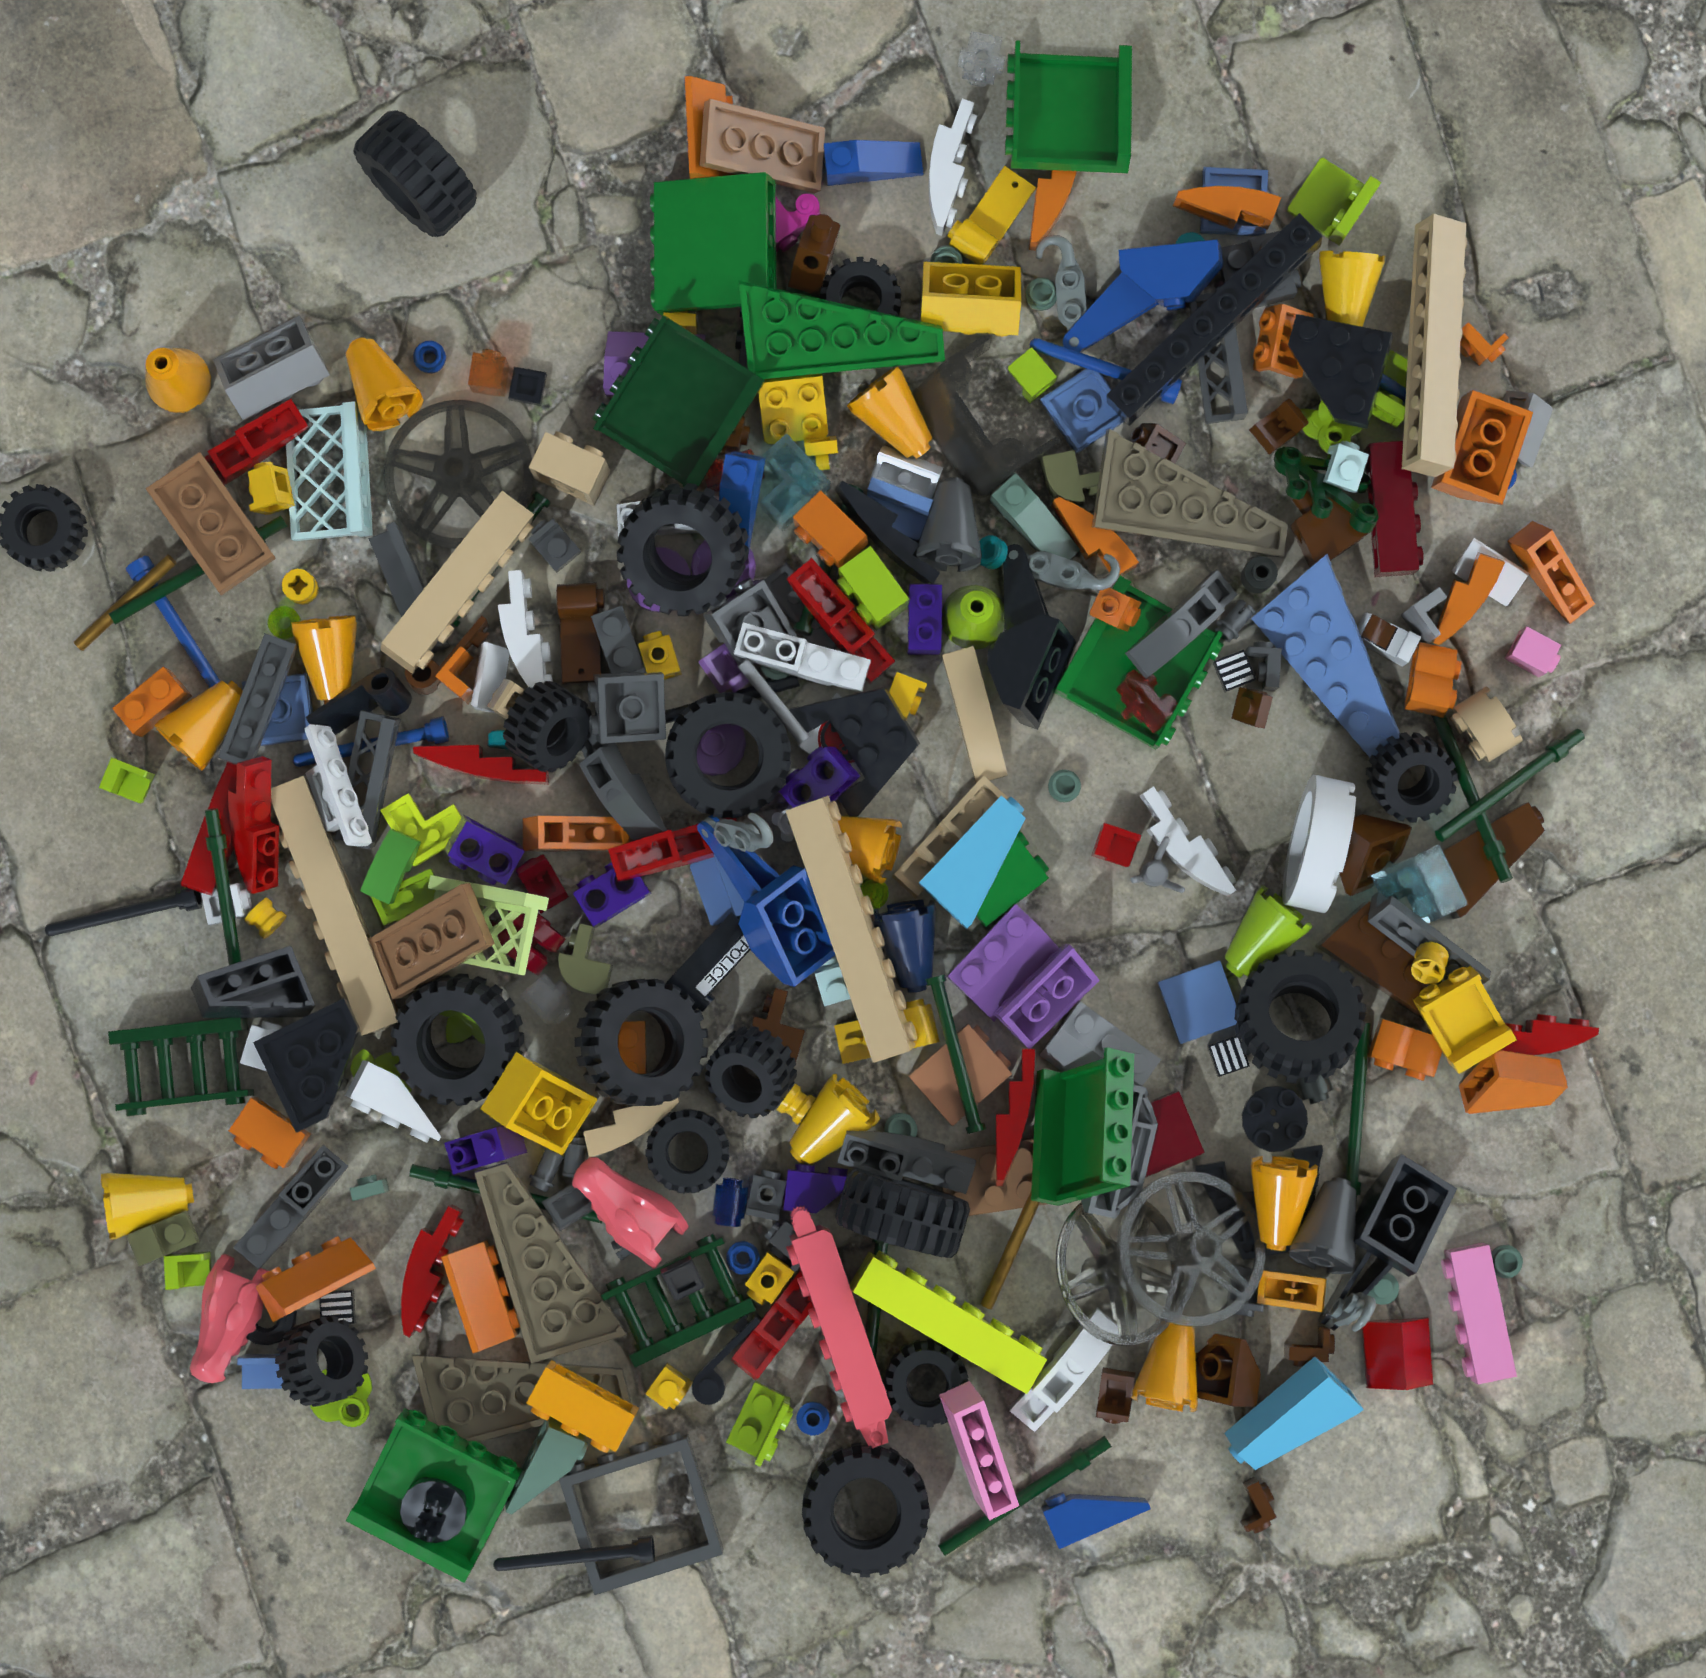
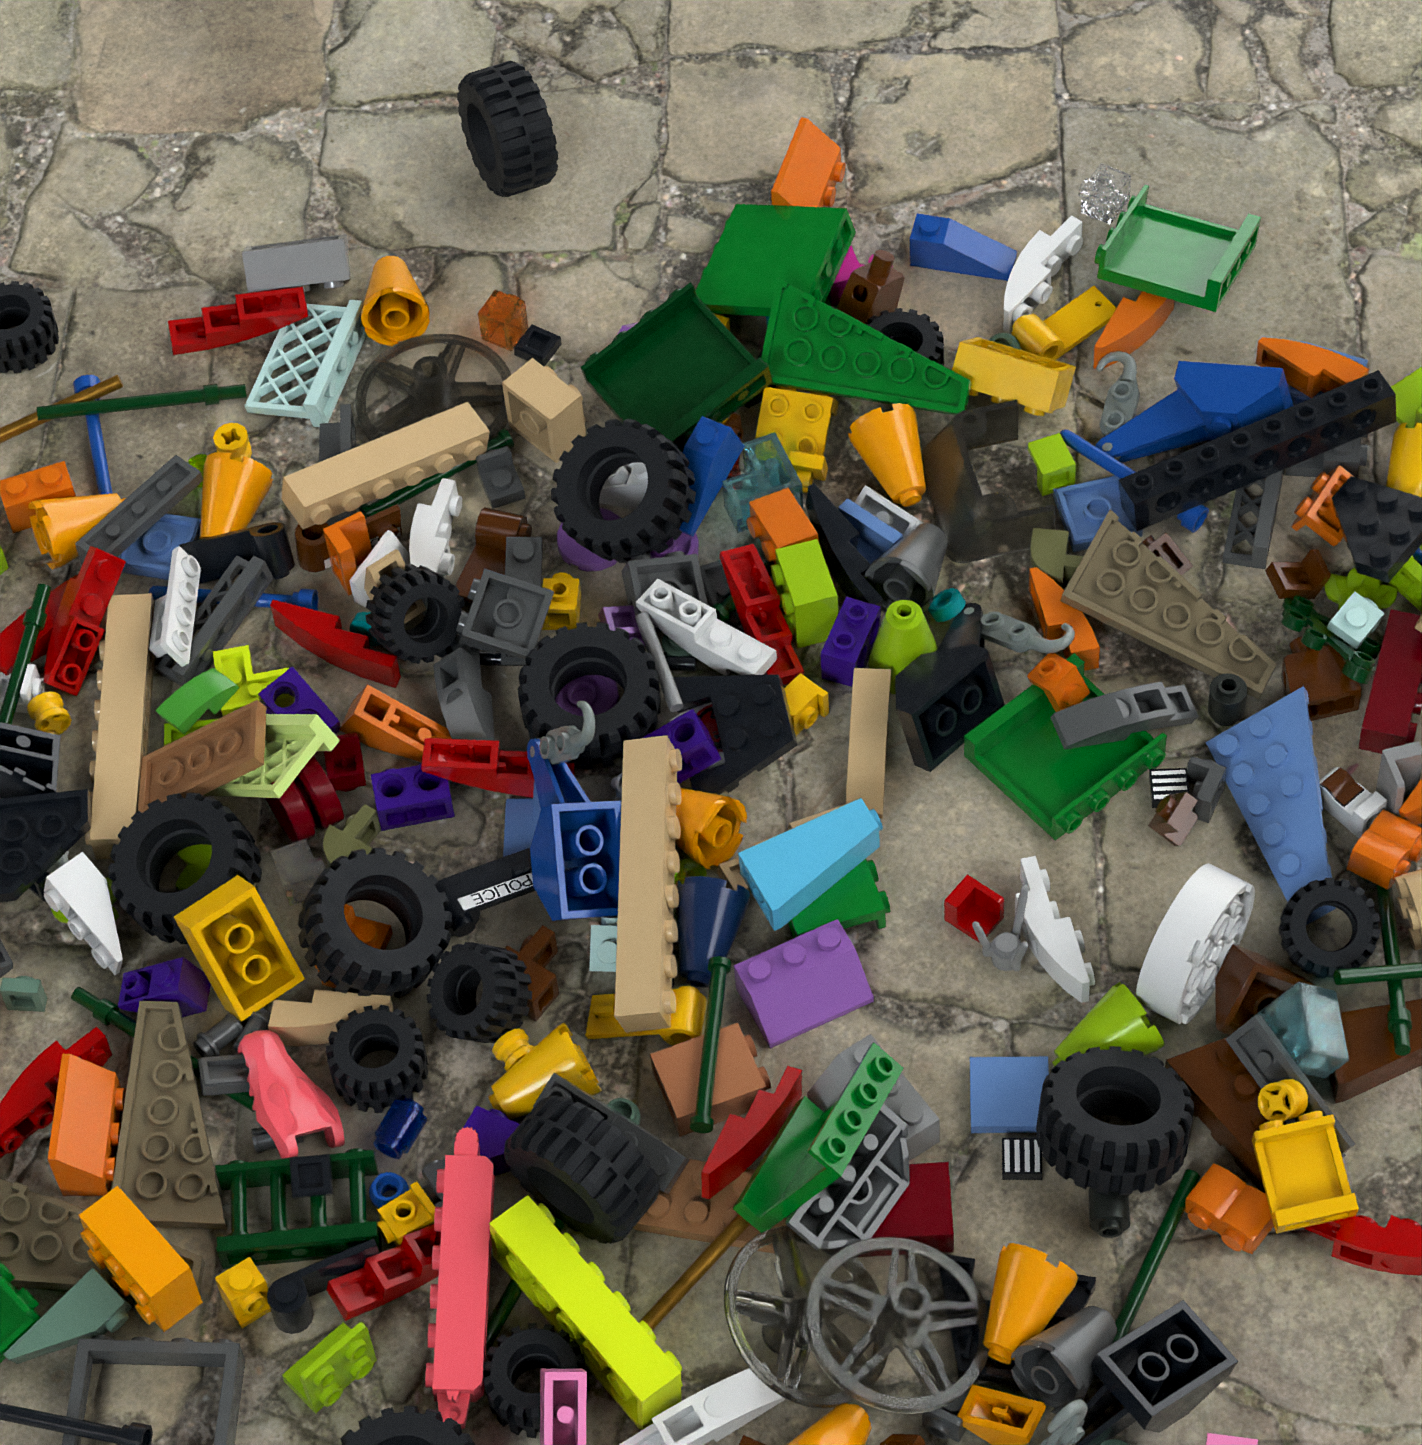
camera: 30 degrees right, 30 degrees down
(177, 379) = (201, 240): light orange cone -> none
(210, 523) = (173, 362): medium nougat plate -> none
(269, 489) = (244, 356): yellow brick -> none
(425, 348) = (453, 295): blue plate -> none
(757, 142) = (877, 212): medium nougat plate -> none
(759, 1207) = (430, 1140): dark grey brick -> none
(820, 1410) = (393, 1394): blue plate -> none
(1032, 518) = (998, 579): sand green slope -> none
(1041, 294) = (1089, 402): sand green plate -> none
(1046, 995) = (833, 1014): medium lavender slope -> none
(1064, 786) = (940, 840): sand green plate -> none
(1143, 702) = (1056, 775): clear red hips -> none
(1235, 621) = (1187, 739): dark grey pin -> none
(1290, 1116) = (1067, 1231): black plate -> none
(1512, 1082) = (1346, 1276): orange slope -> none

